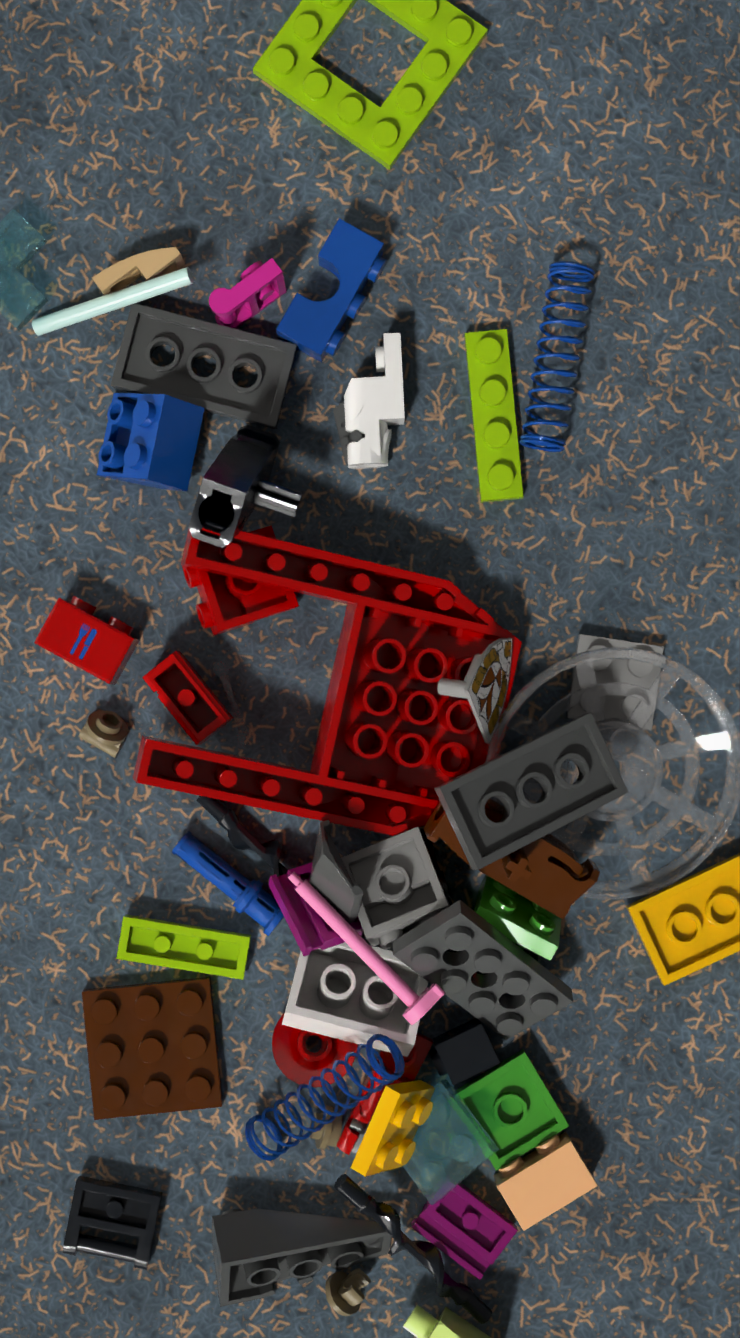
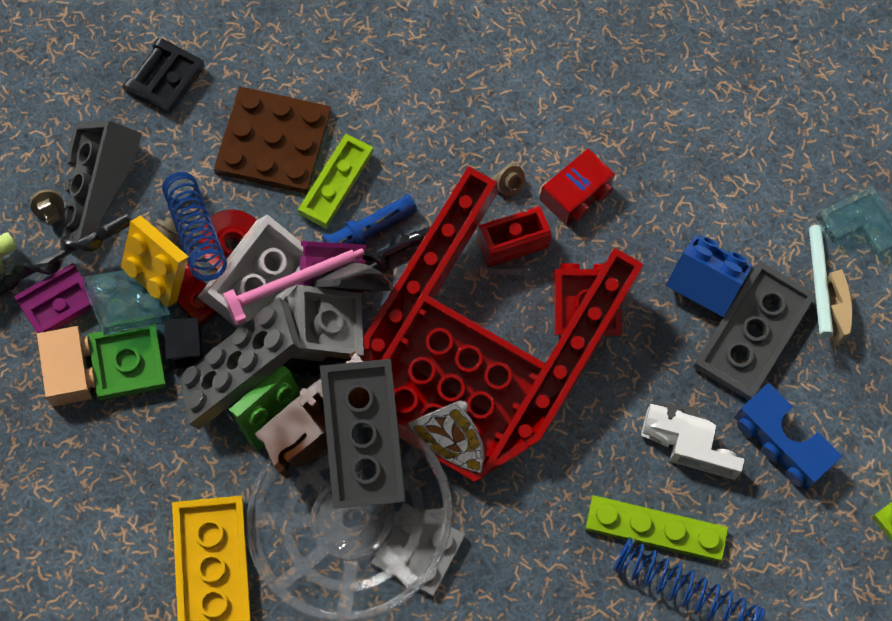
camera: 105 degrees right, 20 degrees down
(237, 484) = (659, 306): black piece -> none
(258, 288) = (799, 371): dark pink plate -> none

